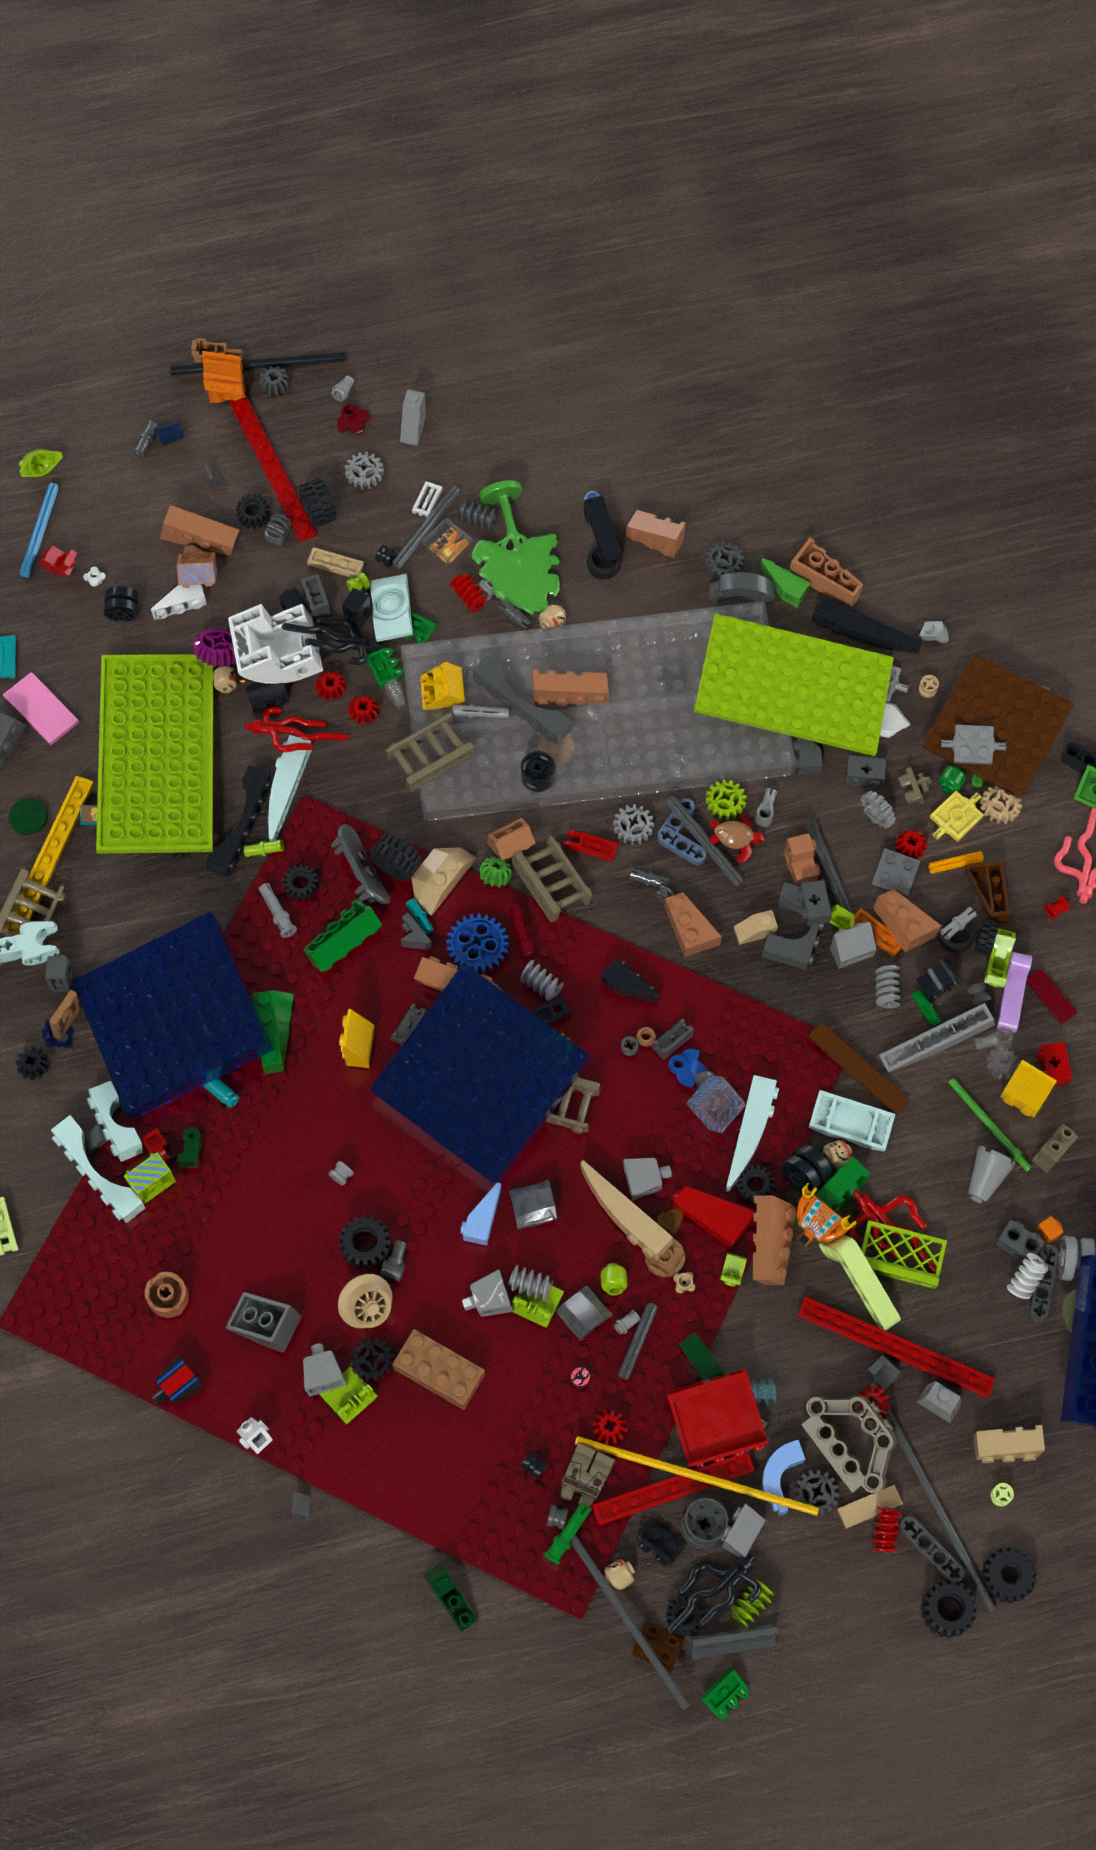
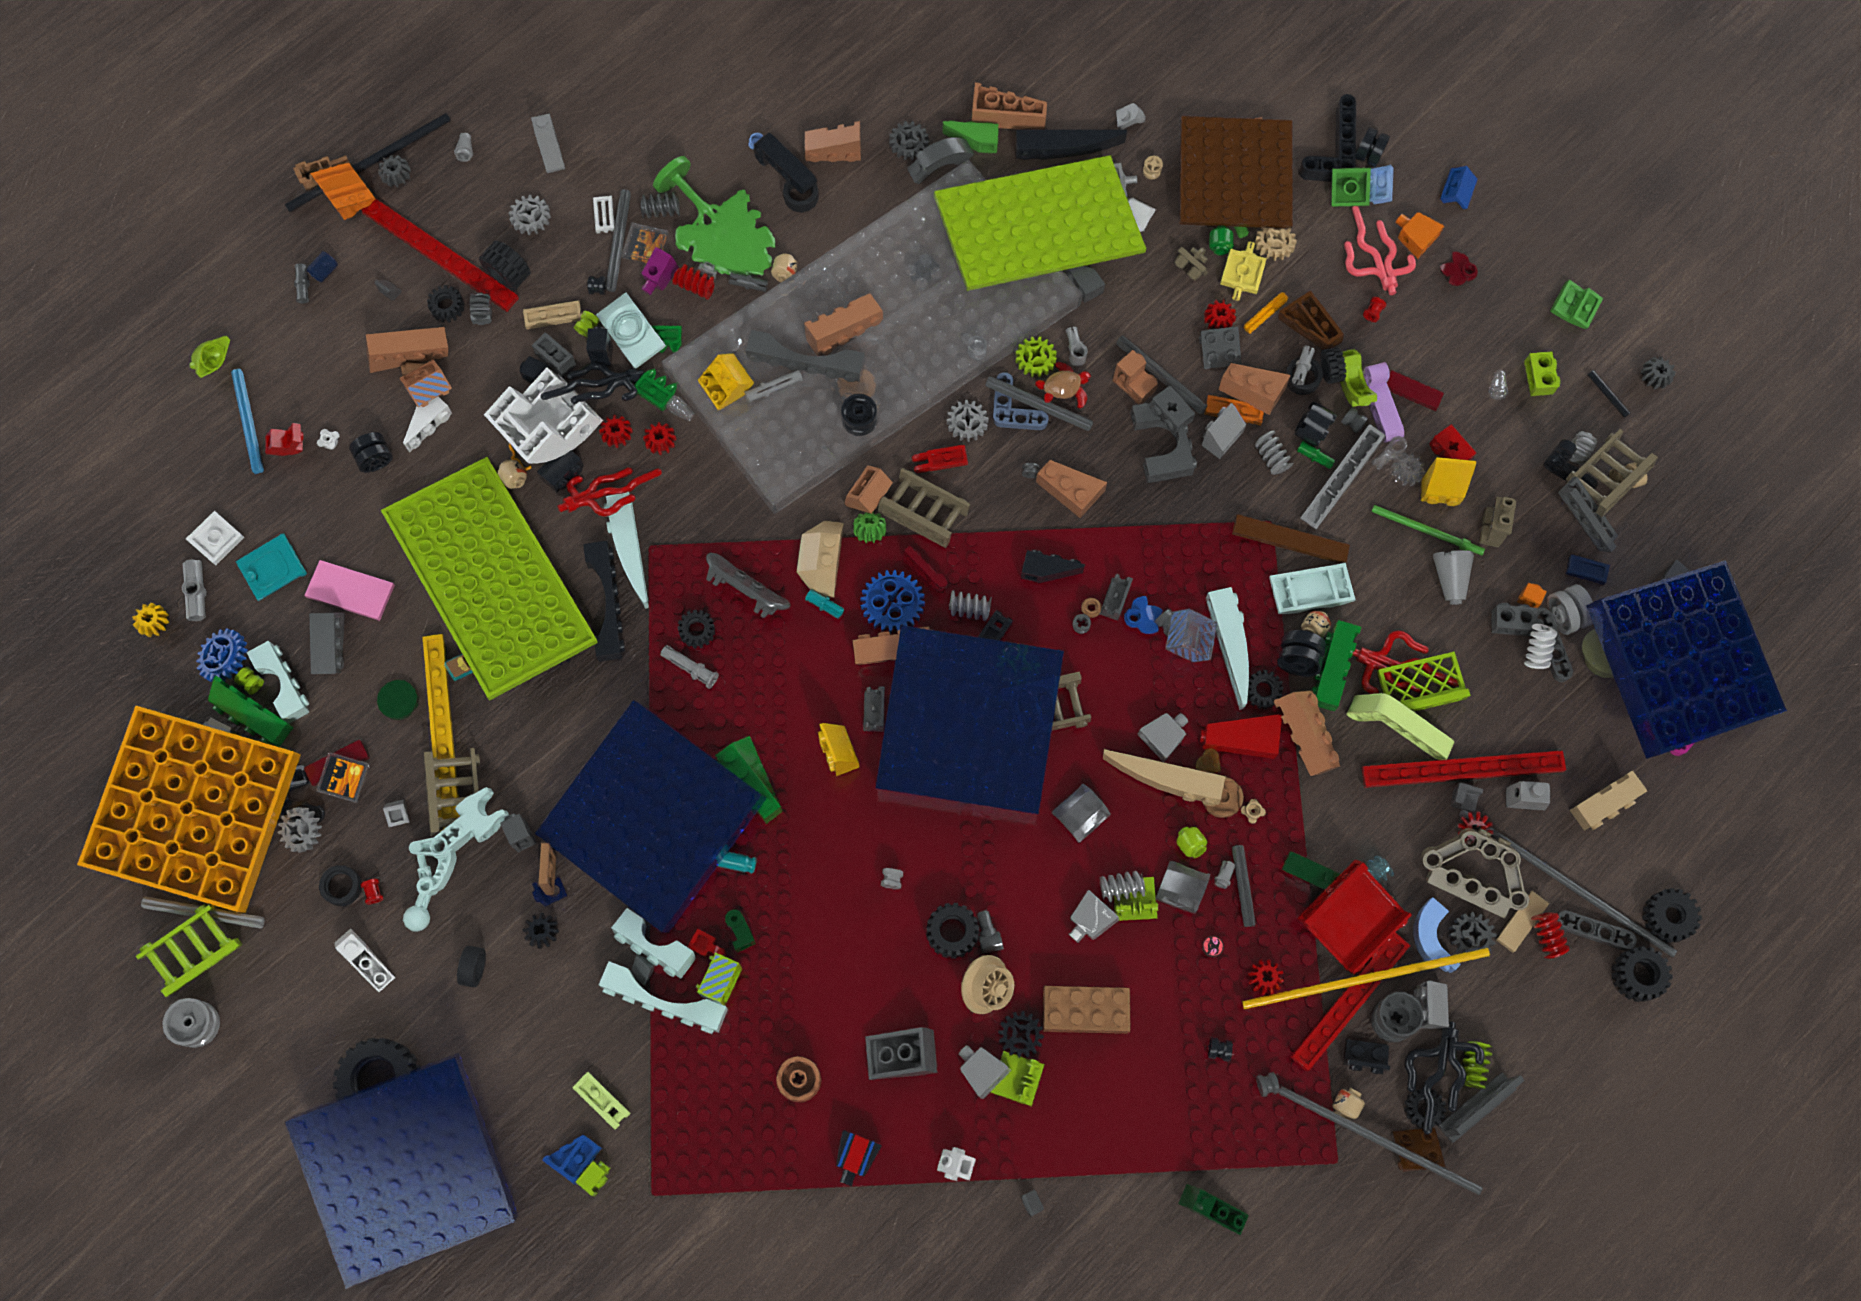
camera: 30 degrees left, 5 degrees up
(214, 647) = (487, 448): magenta gear -> none
(263, 848) = (642, 614): lime pin -> none
(342, 935) = (765, 657): green wedge -> none
(354, 421) = (491, 174): dark red plate -> none
(395, 857) = (774, 560): black tyre -> none
(416, 937) = (834, 624): dark grey slope -> none
(431, 770) = (759, 462): dark tan fence -> none
(442, 569) = (658, 271): none -> magenta torso
(480, 1220) = (1044, 855): light blue slope -> none
(562, 1541) = (1286, 1104): green pin -> none
(582, 1482) = (1270, 1032): dark tan hips -> none
(648, 878) = (1008, 462): dark grey pin -> none
(724, 1693) = (1498, 1157): green plate -> none
(733, 1269) = (1289, 776): lime bracket -> none
(756, 927) = (1129, 458): tan slope -> none
(819, 1220) = (1342, 692): torso -> none
(842, 918) = (1203, 413): lime bracket -> none
(857, 767) = (1142, 270): dark grey brick -> none
(878, 809) = (1176, 298): light grey gear -> none
(973, 744) = (1227, 199): light grey plate -> none
(1005, 1491) = (1630, 847): yellowish green wheel -> none

